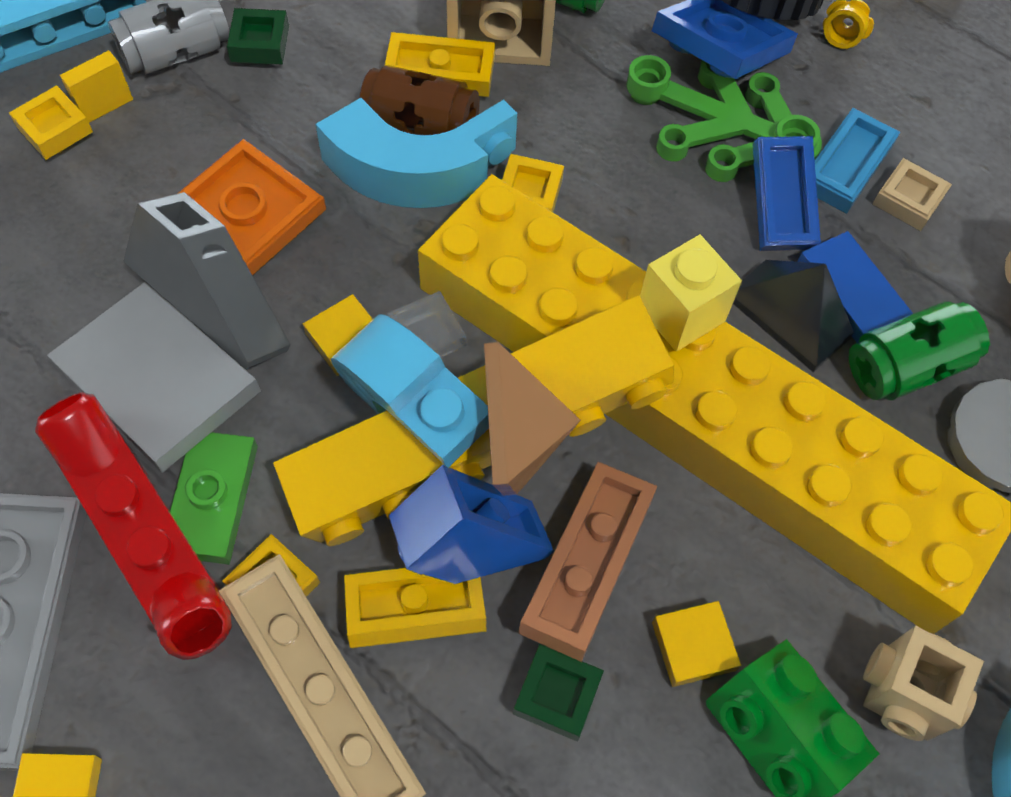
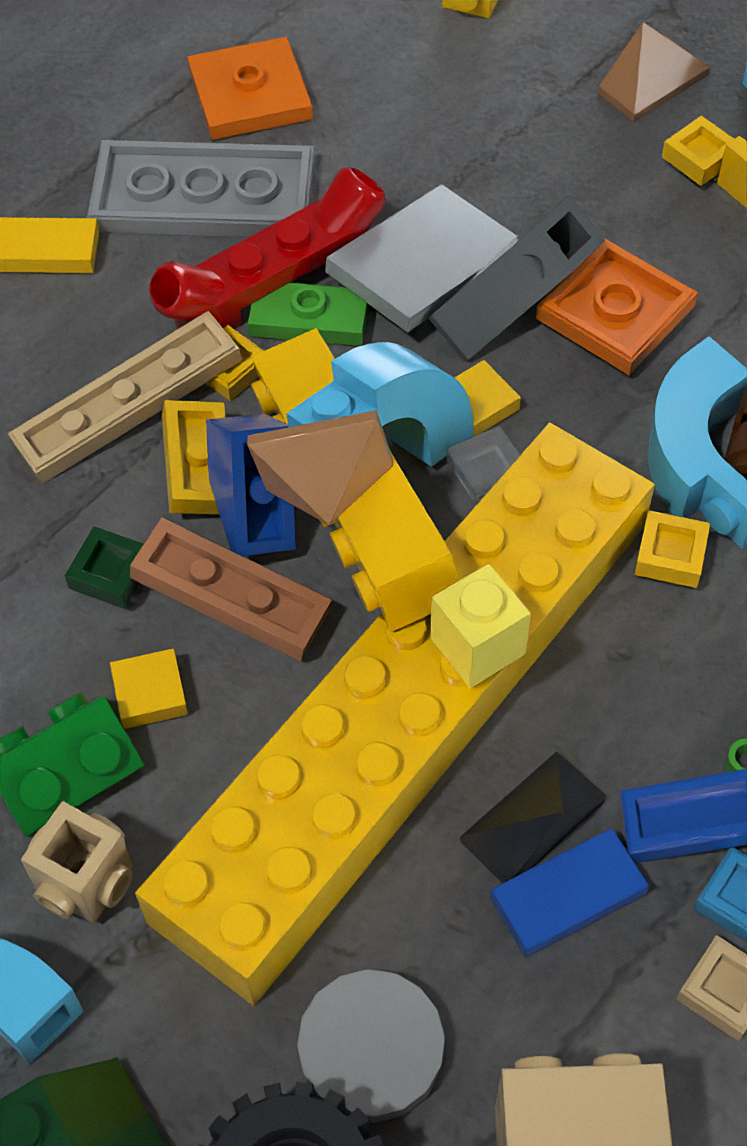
camera: 95 degrees right, 5 degrees down
(919, 350) = (474, 936): green piece -> none

